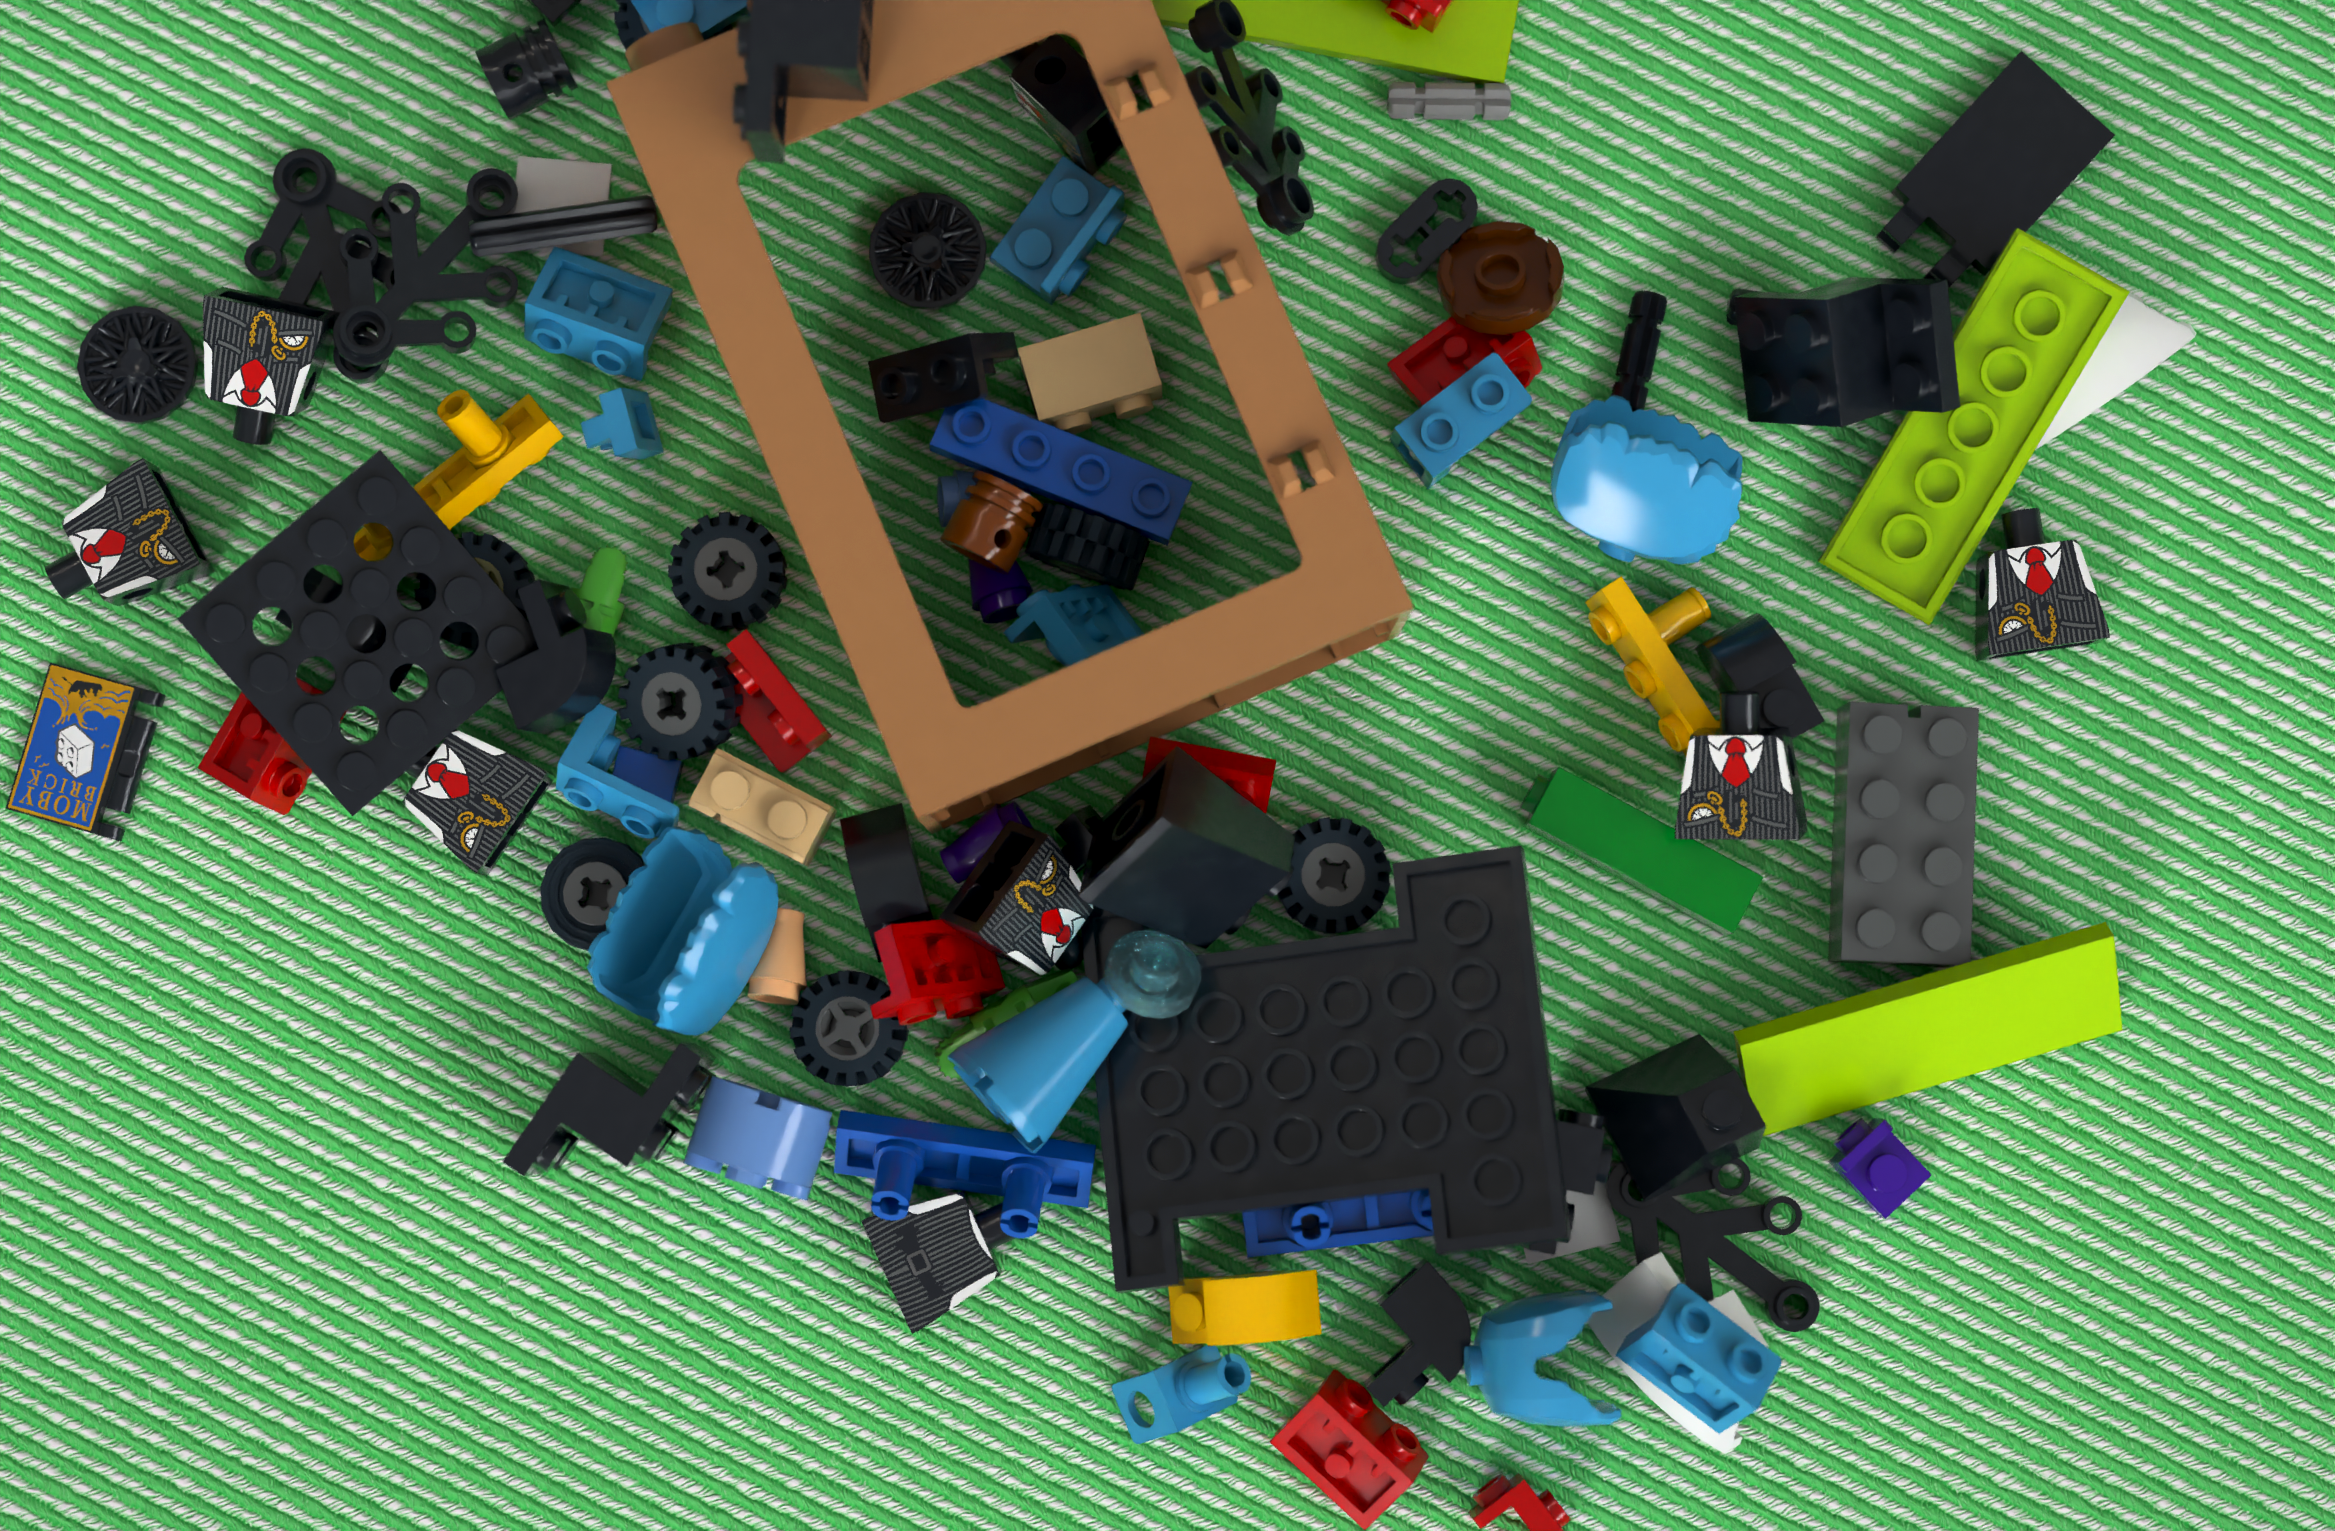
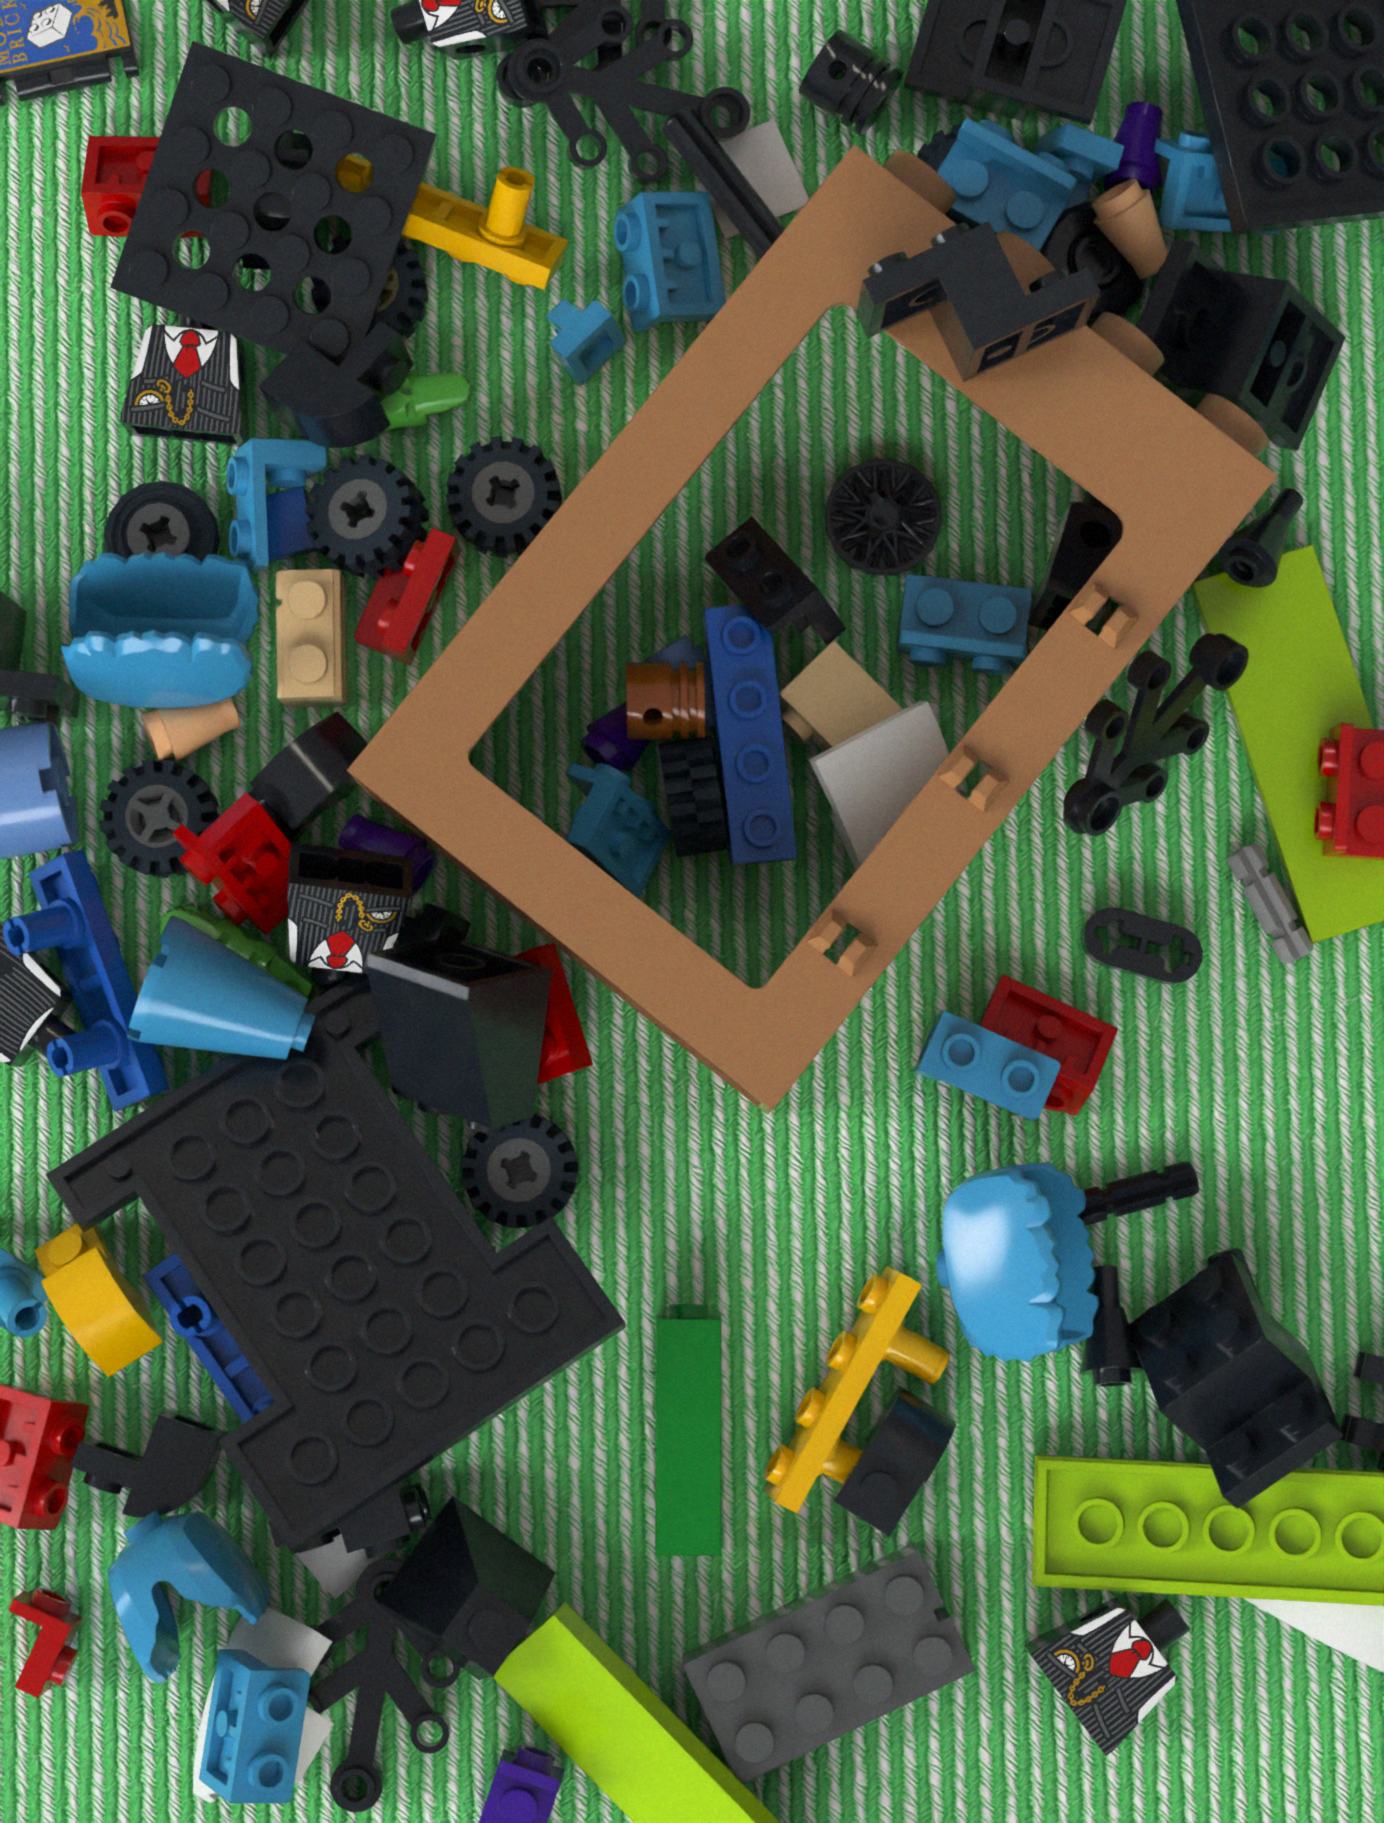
camera: 65 degrees right, 0 degrees up
(1152, 974) = (340, 1056): clear light blue plate -> none
(1169, 374) = (879, 775): none -> white slope
(1500, 278) = (1133, 1034): reddish brown tile -> none
(1741, 778) = (792, 1489): torso -> none
(1764, 446) = (1111, 1350): none -> black cone

